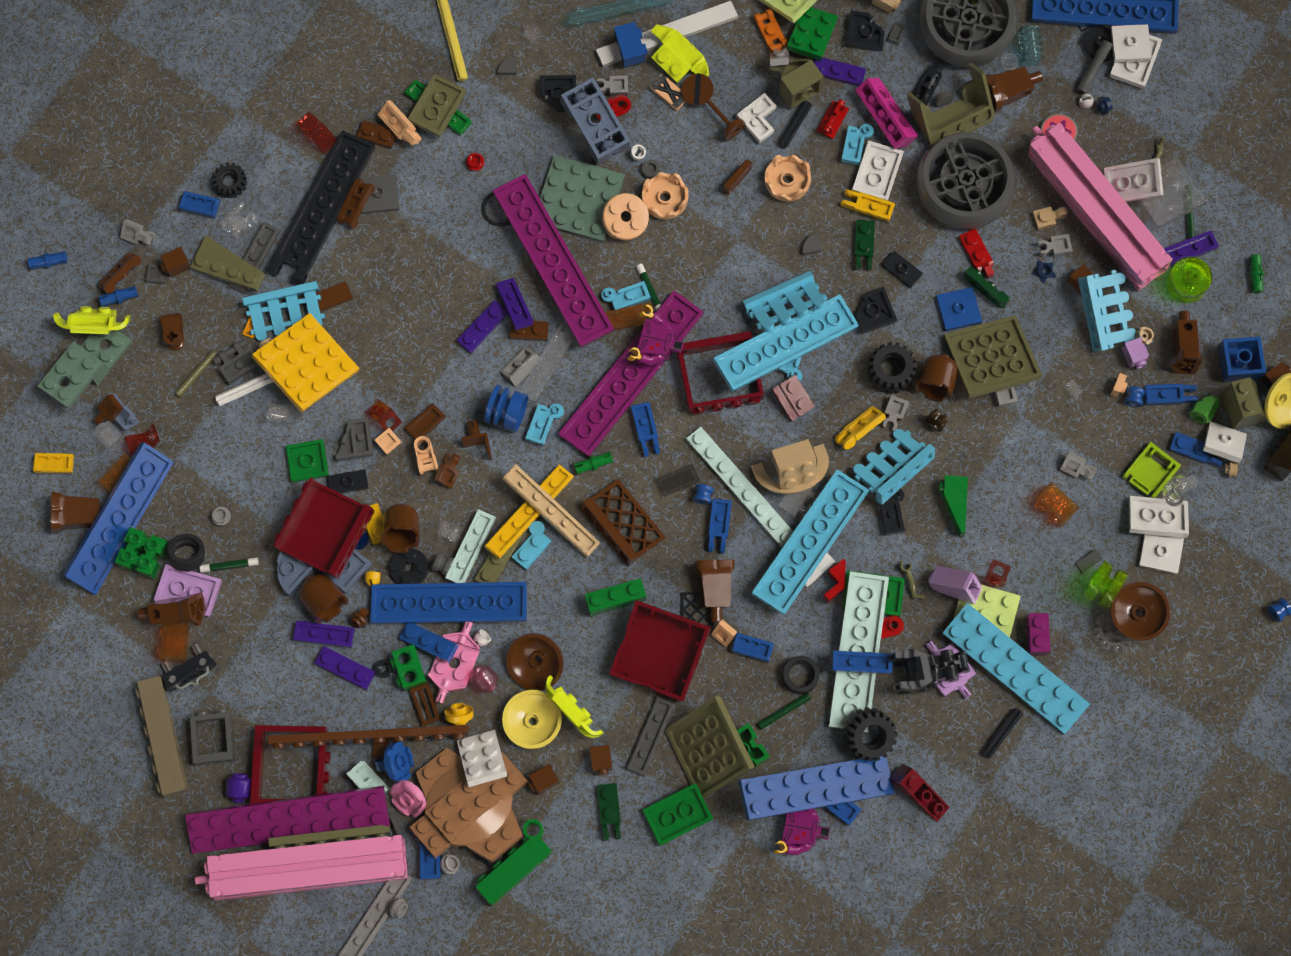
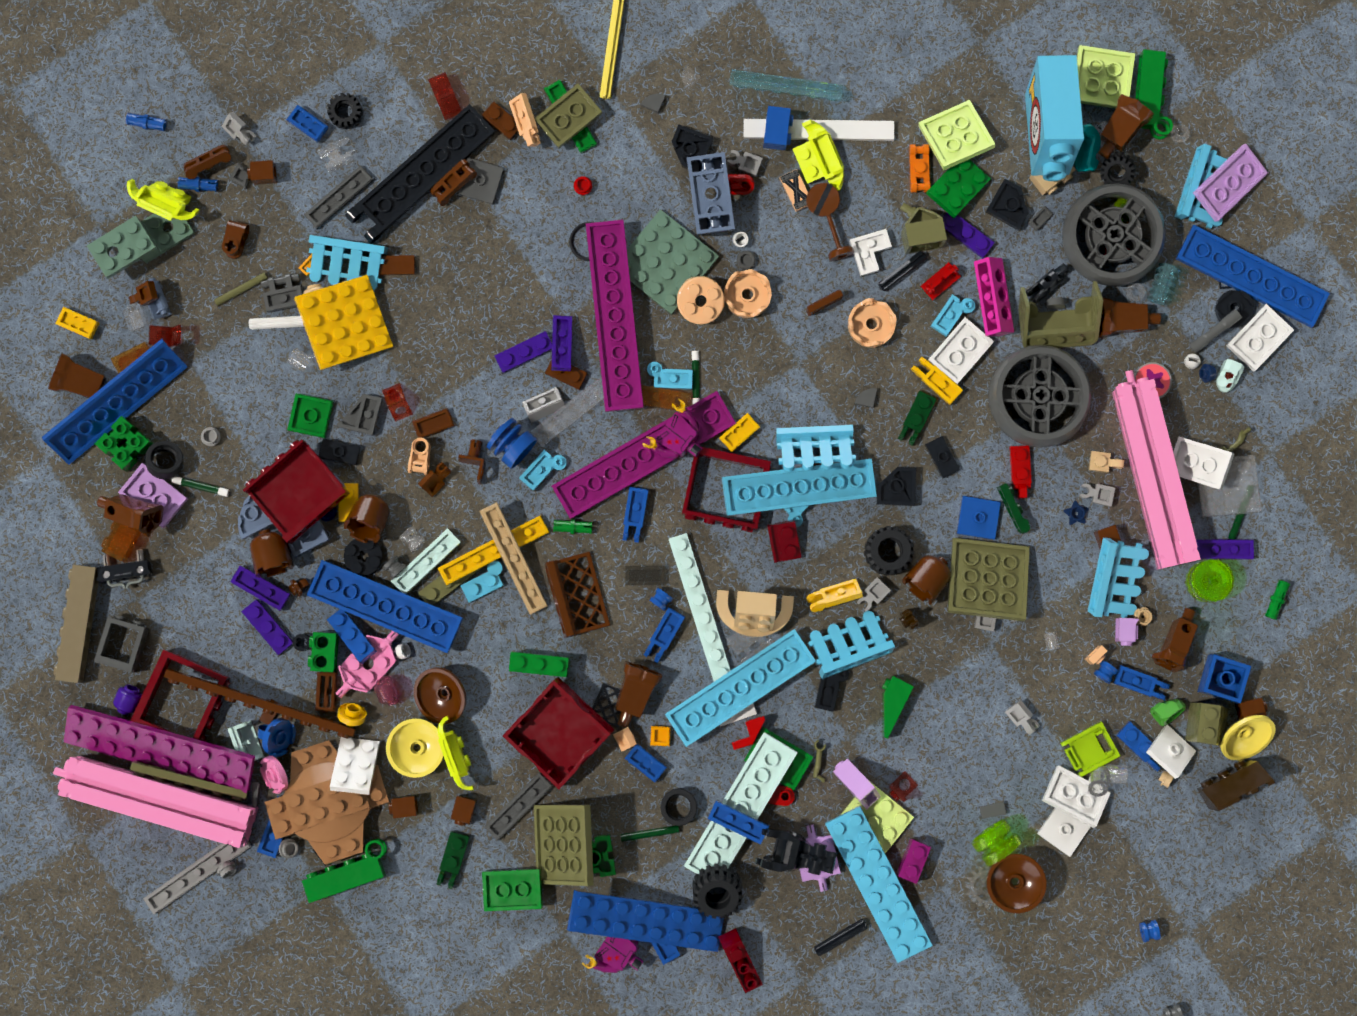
camera: 20 degrees right, 10 degrees up
(222, 264) = (305, 191): olive wing -> none
(372, 577) = (324, 553): yellow hinge -> none
(388, 441) = (391, 428): light nougat plate -> none
(710, 319) = (739, 432): none -> yellow plate
(755, 618) = (660, 736): none -> light orange tile
(779, 57) = (914, 200): light grey plate -> none
(1055, 505) = (985, 745): clear orange brick -> none
(1123, 99) = (1229, 375): none -> light aqua rock
(1131, 43) = (1261, 322): white plate -> none

